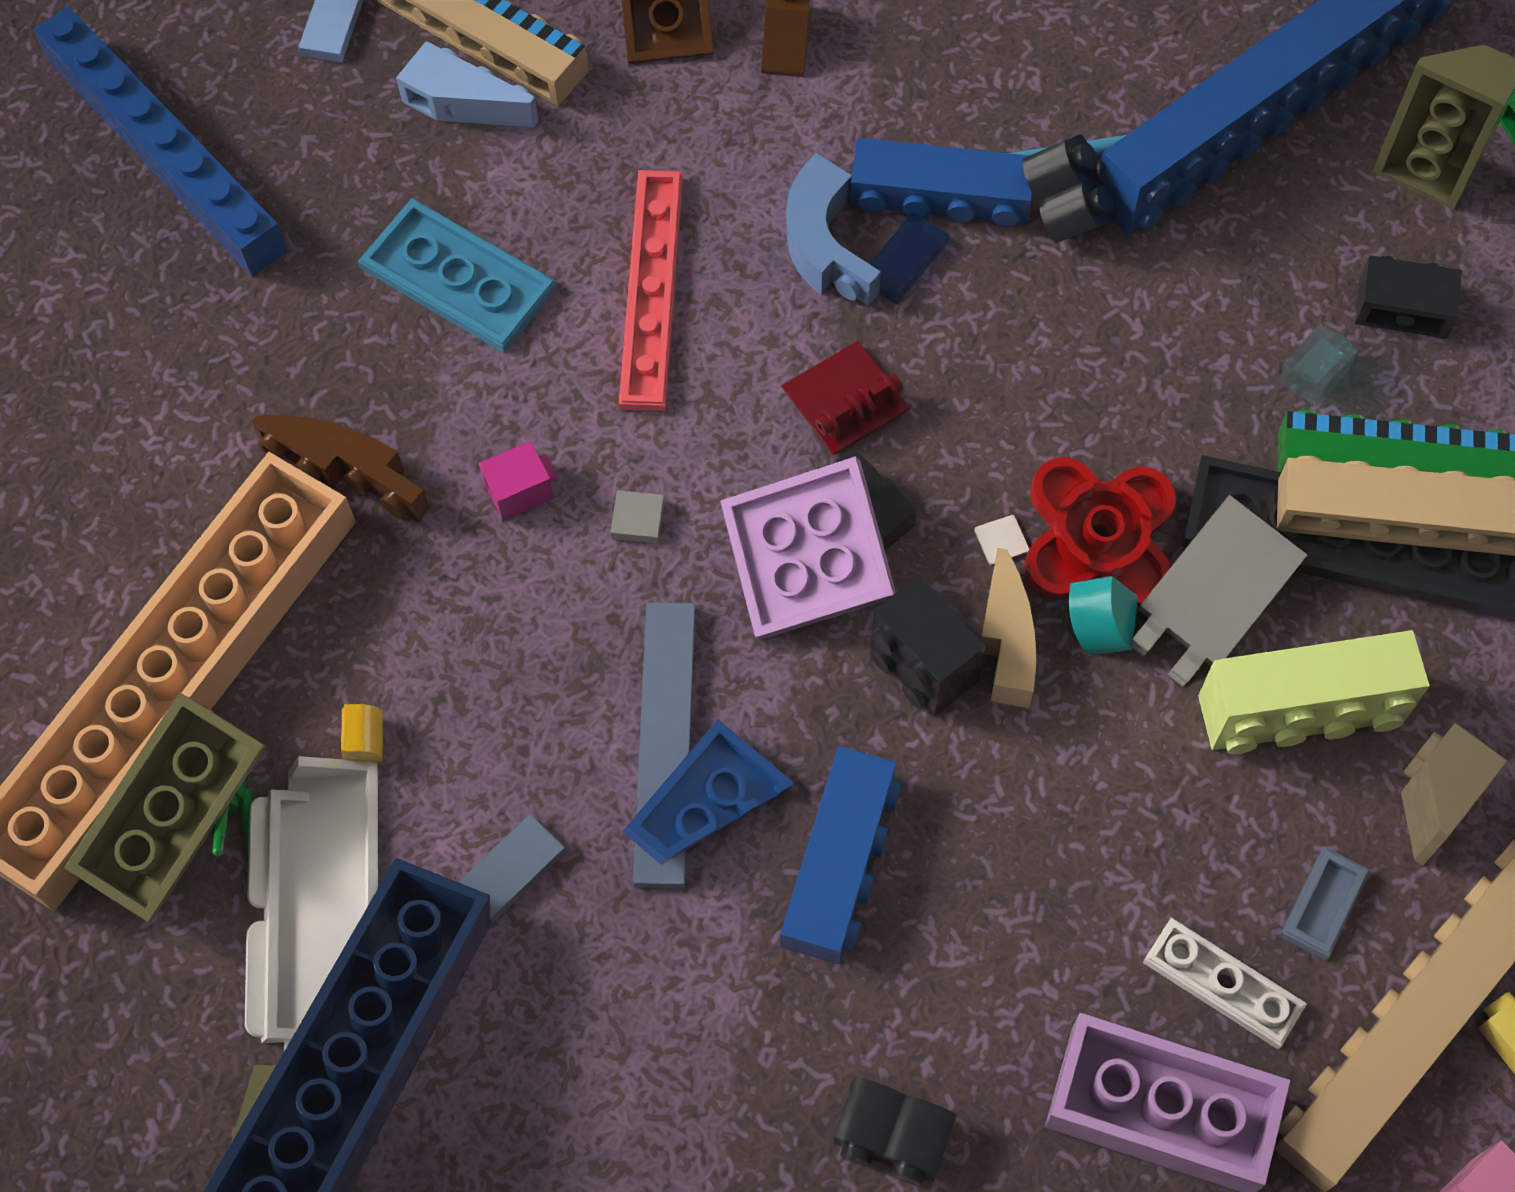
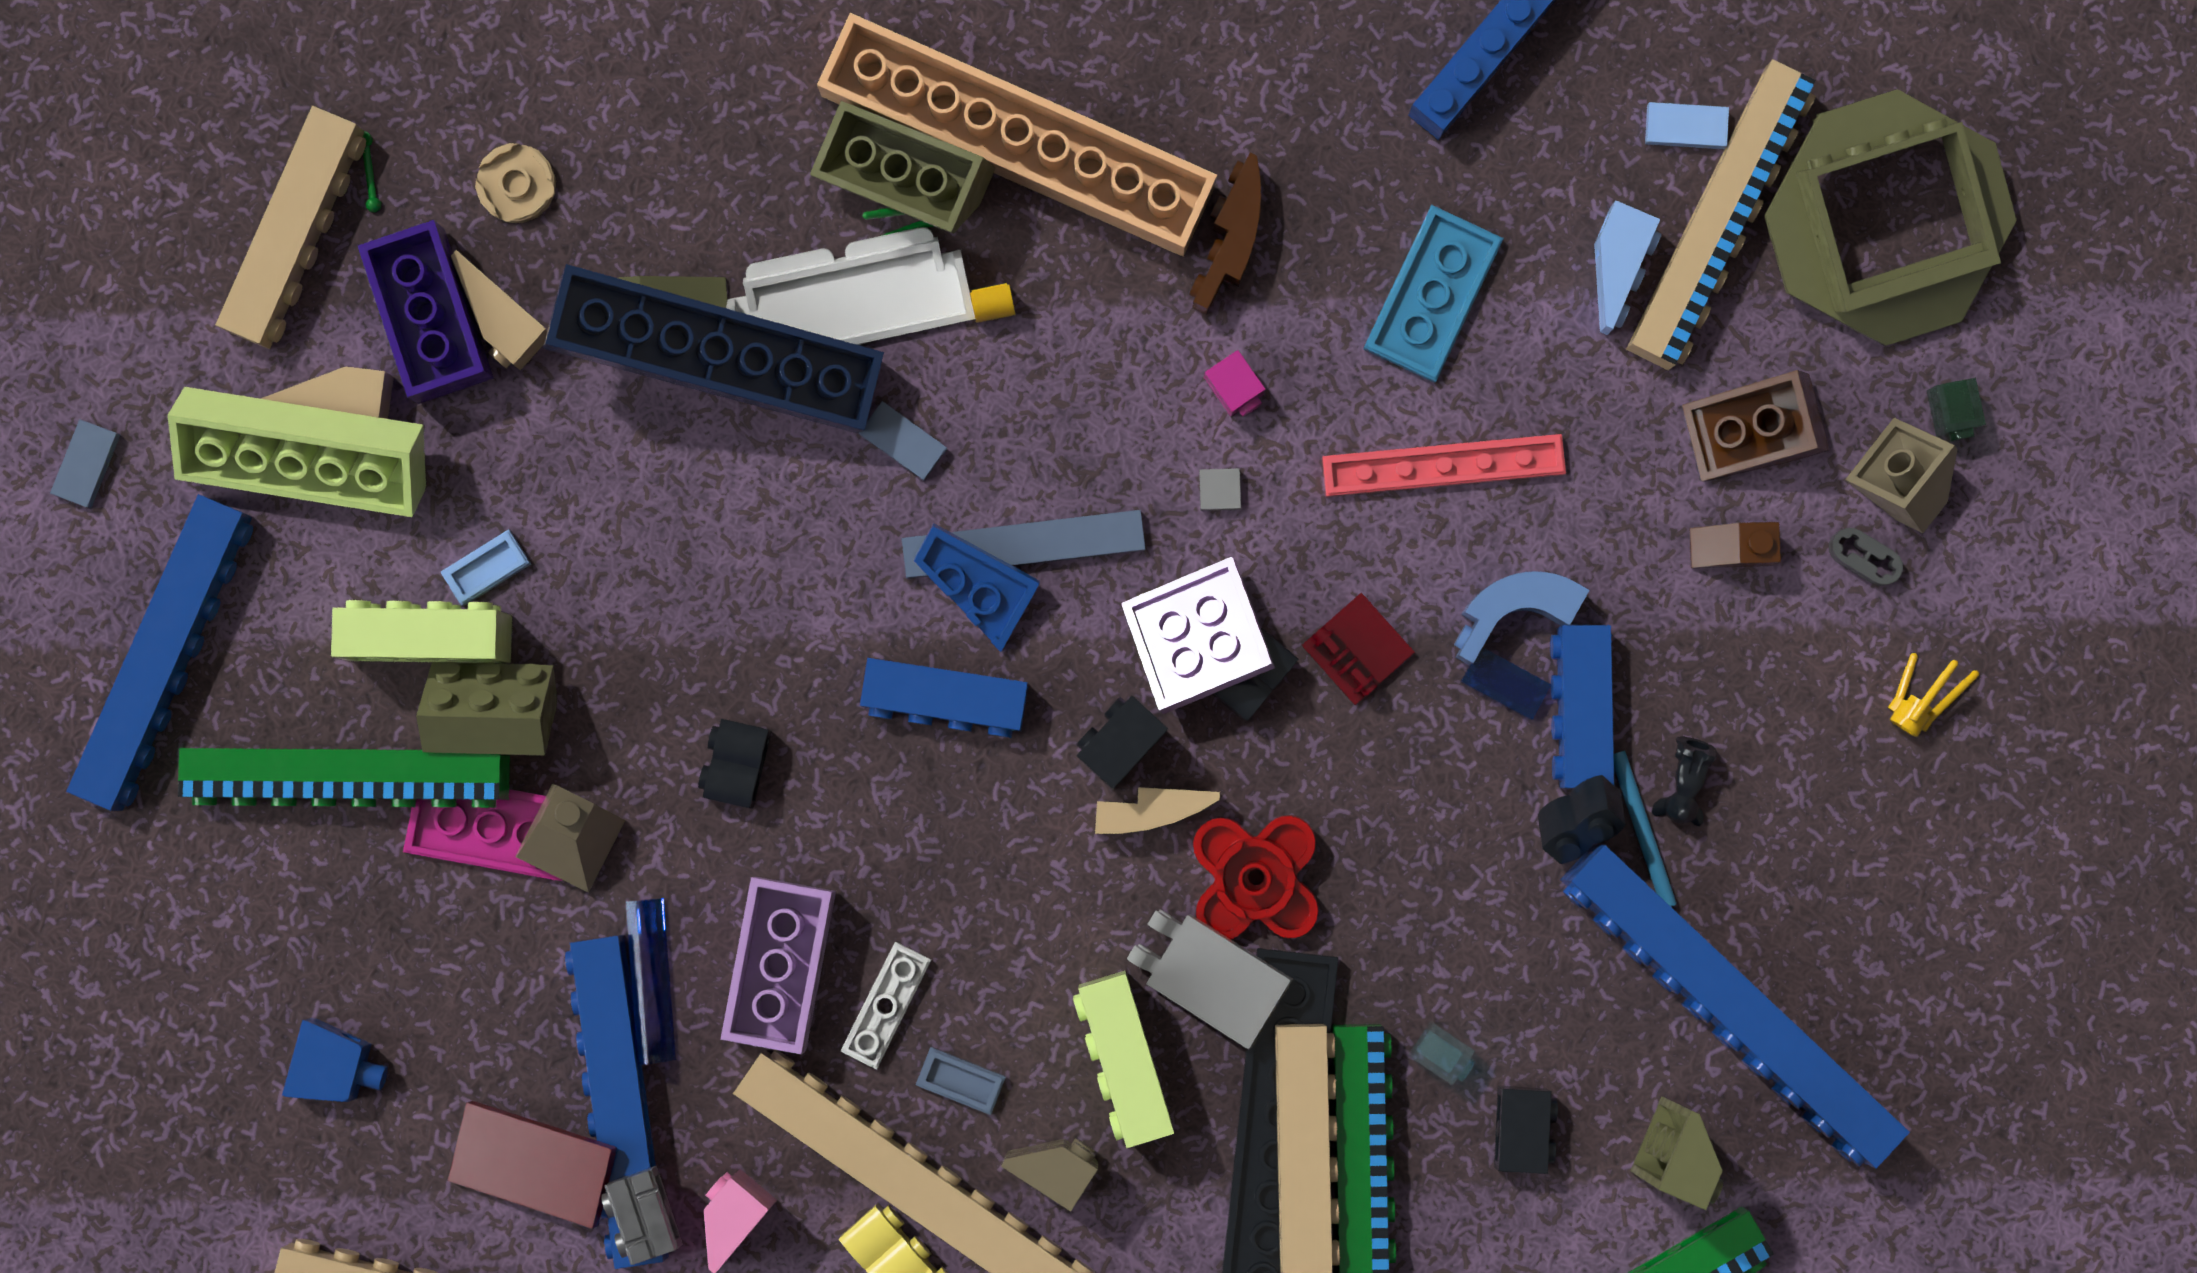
camera: 85 degrees right, 20 degrees up
(1001, 534) = (1242, 796): white piece -> none
(1027, 95) = (1692, 770): none -> black animal
(1103, 615) = (1176, 885): teal brick -> none

